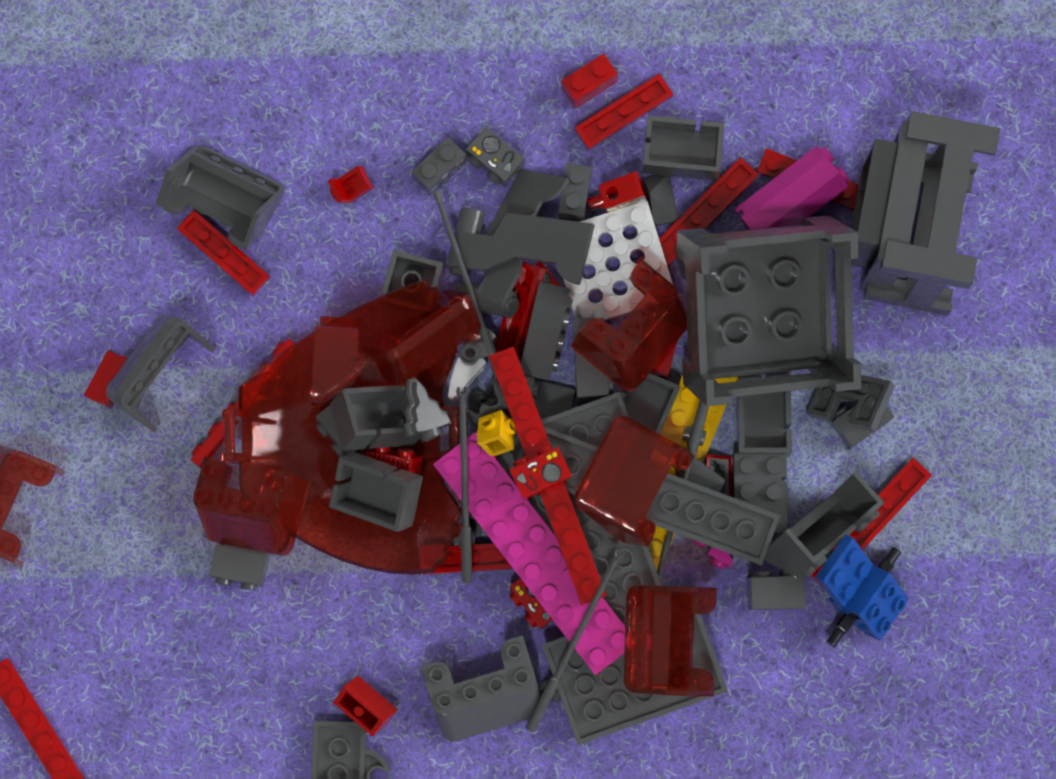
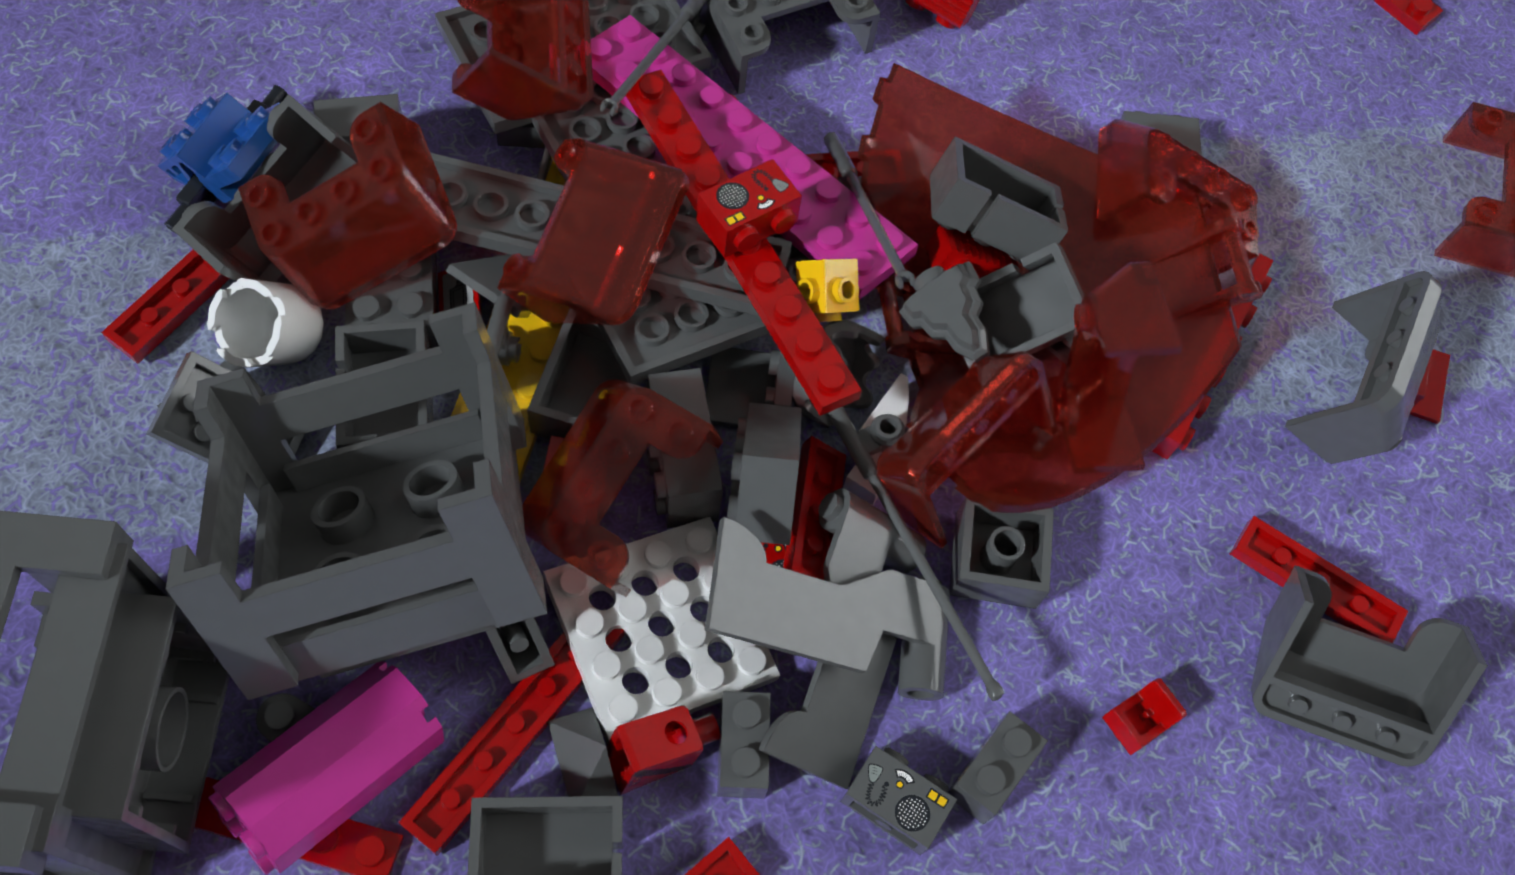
camera: 160 degrees right, 15 degrees down
(754, 496) = (361, 221): none -> clear red windscreen
(832, 460) = (264, 323): none -> white cylinder

